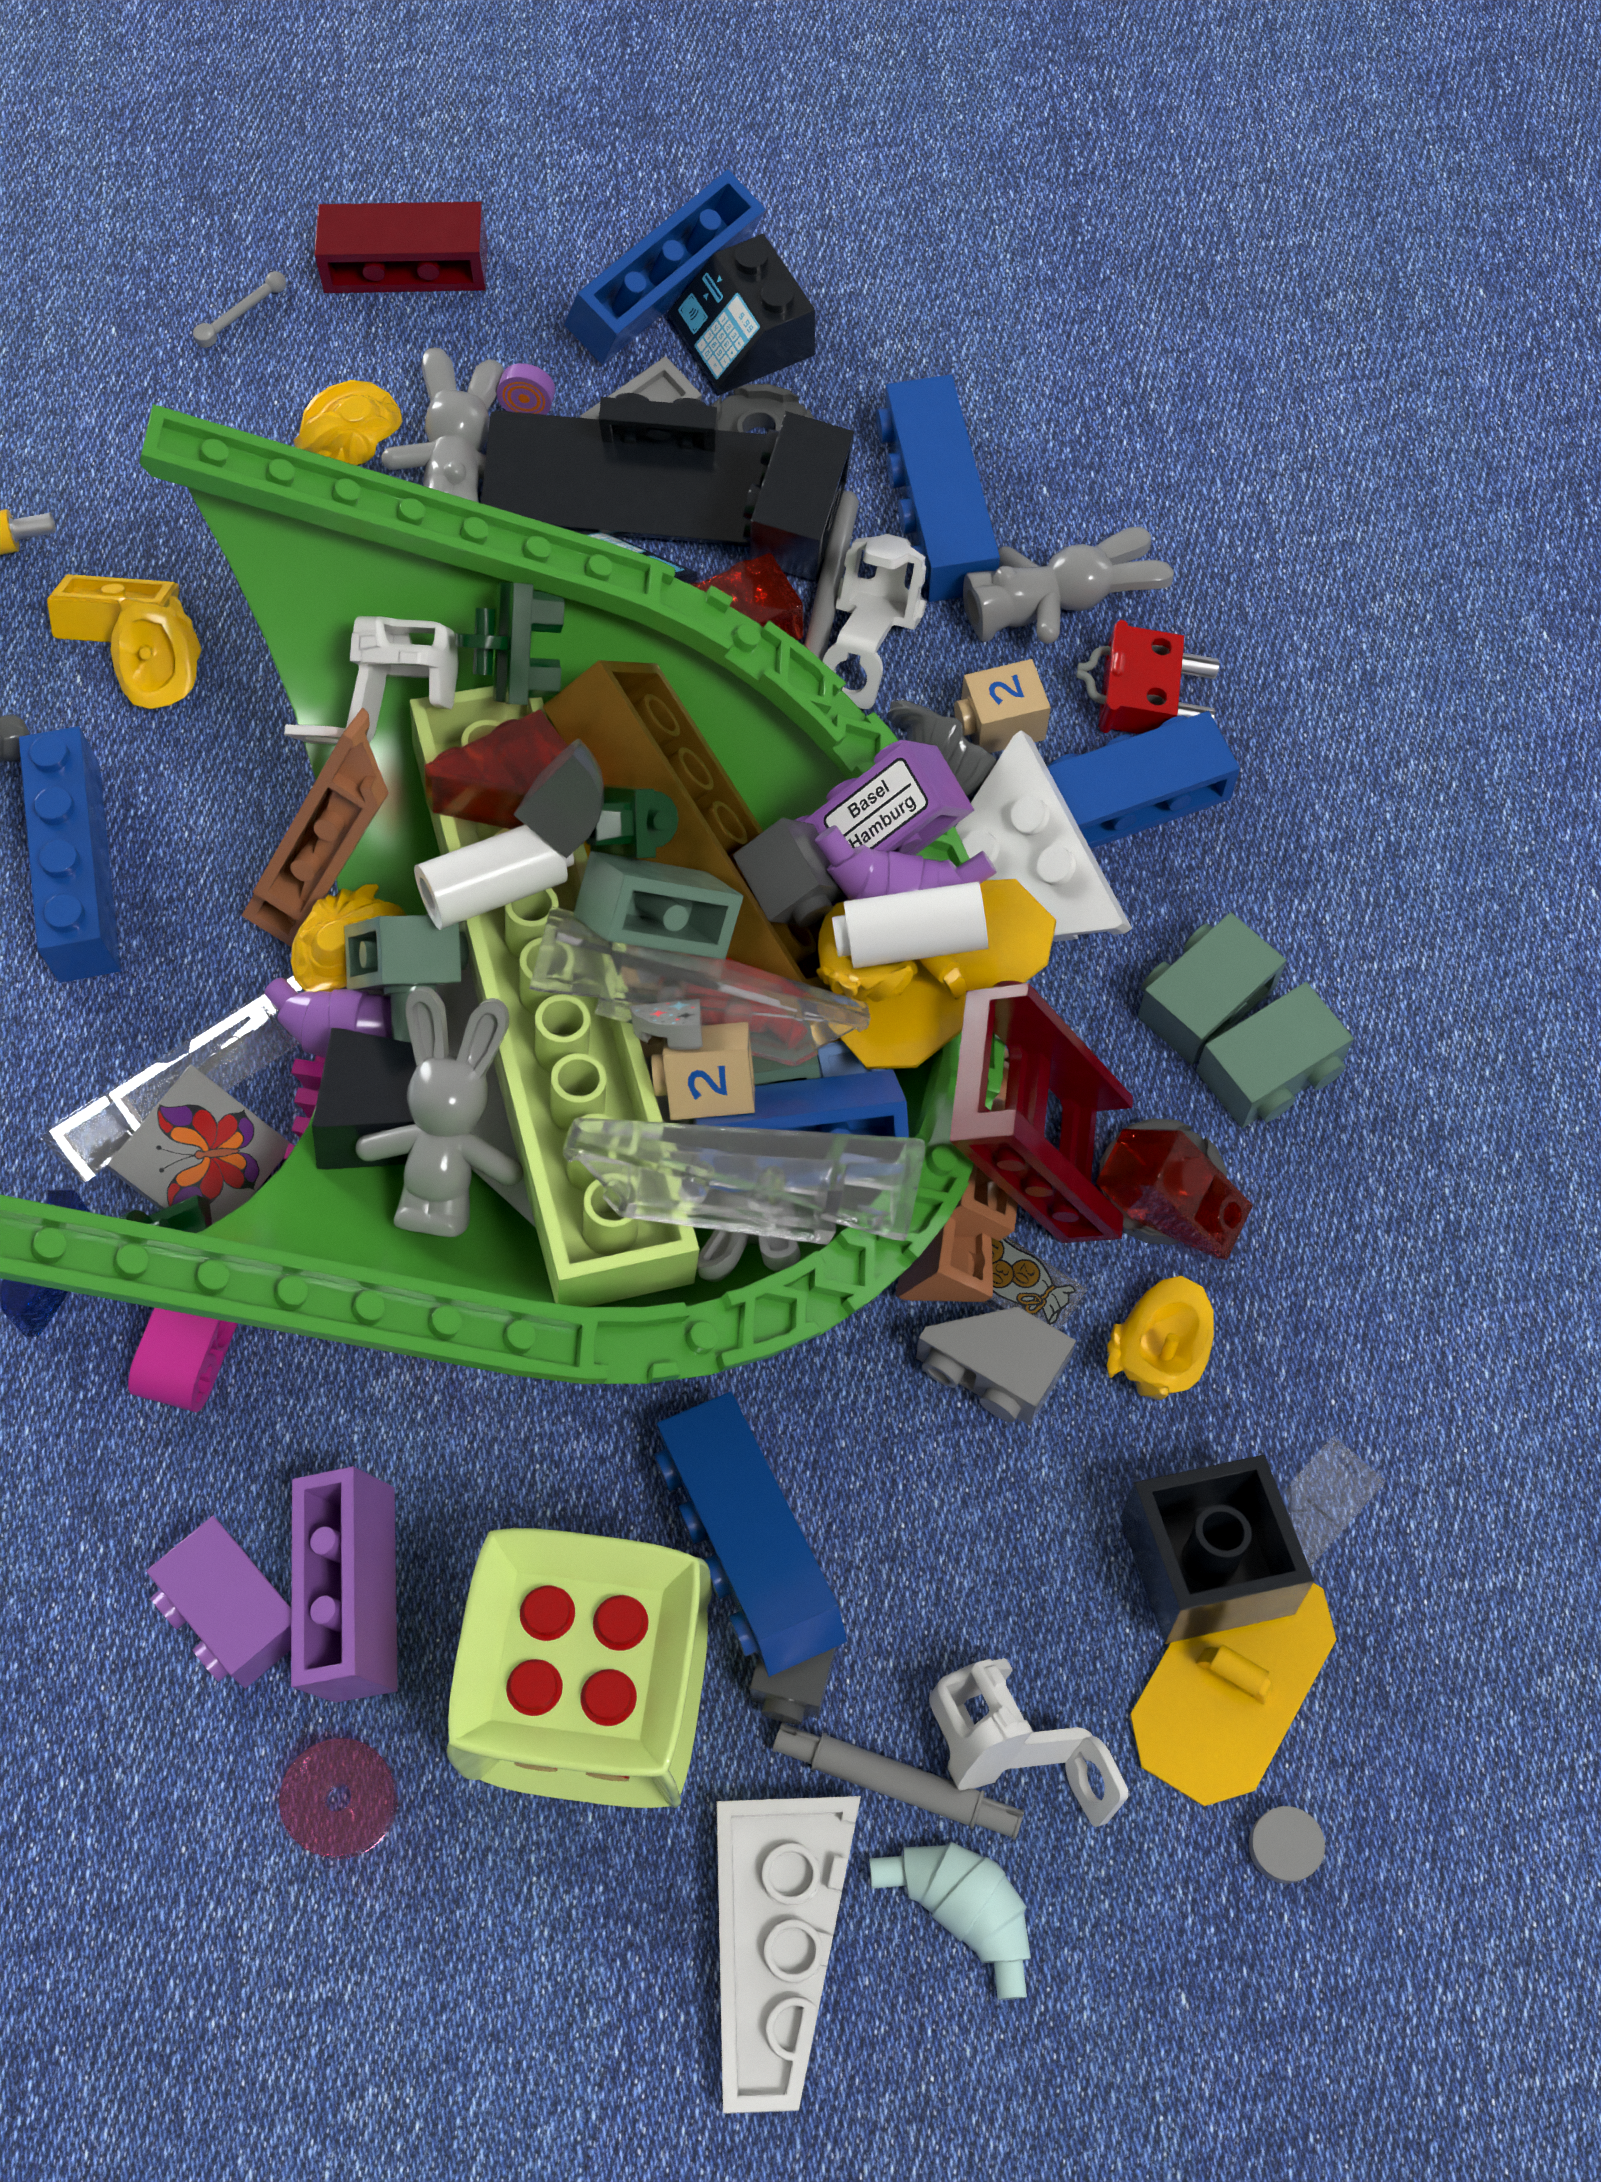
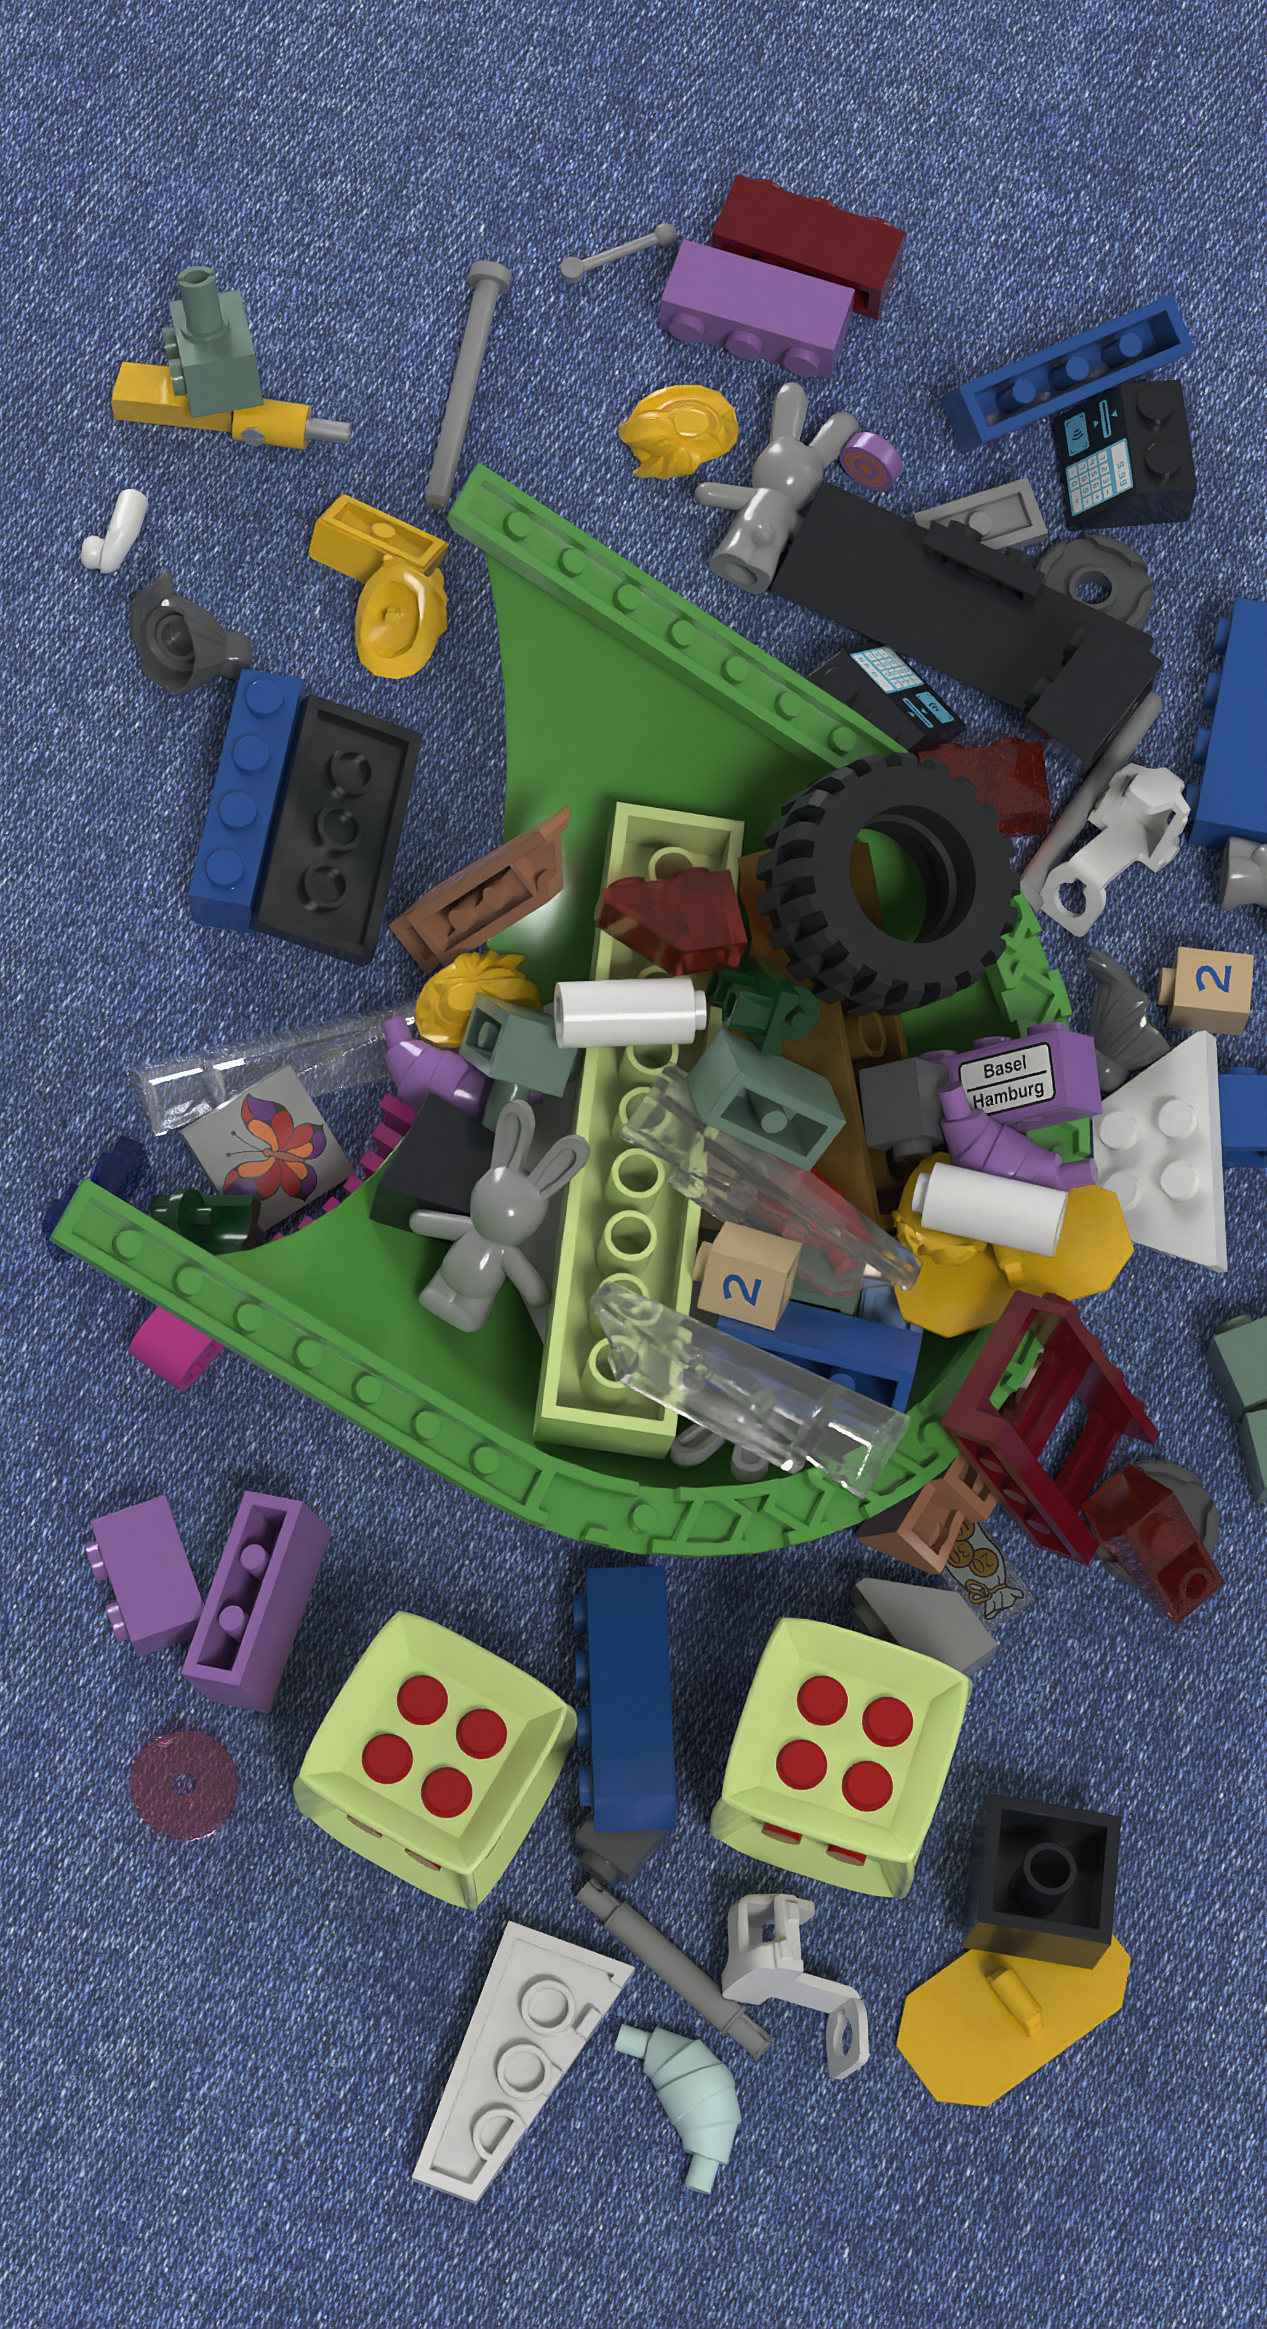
camera: 20 degrees right, 5 degrees up
(135, 363) = (489, 281): none -> light grey bar
(161, 851) = (336, 831): none -> black plate
(377, 307) = (756, 310): none -> medium lavender brick
(385, 650) = (611, 746): white piece -> none
(518, 614) = (724, 818): dark green hips -> none
(565, 799) = (714, 975): dark grey brick -> none
(674, 1020) = (732, 1219): light grey tile -> none
(733, 614) = (961, 868): none -> black tyre
(983, 1503) = (840, 1757): none -> yellowish green piece
(1164, 1339) = (1085, 1675): yellow hat -> none
(1286, 1845) = (993, 2162): light grey tile -> none
(1329, 1496) = (1171, 1881): clear tile -> none

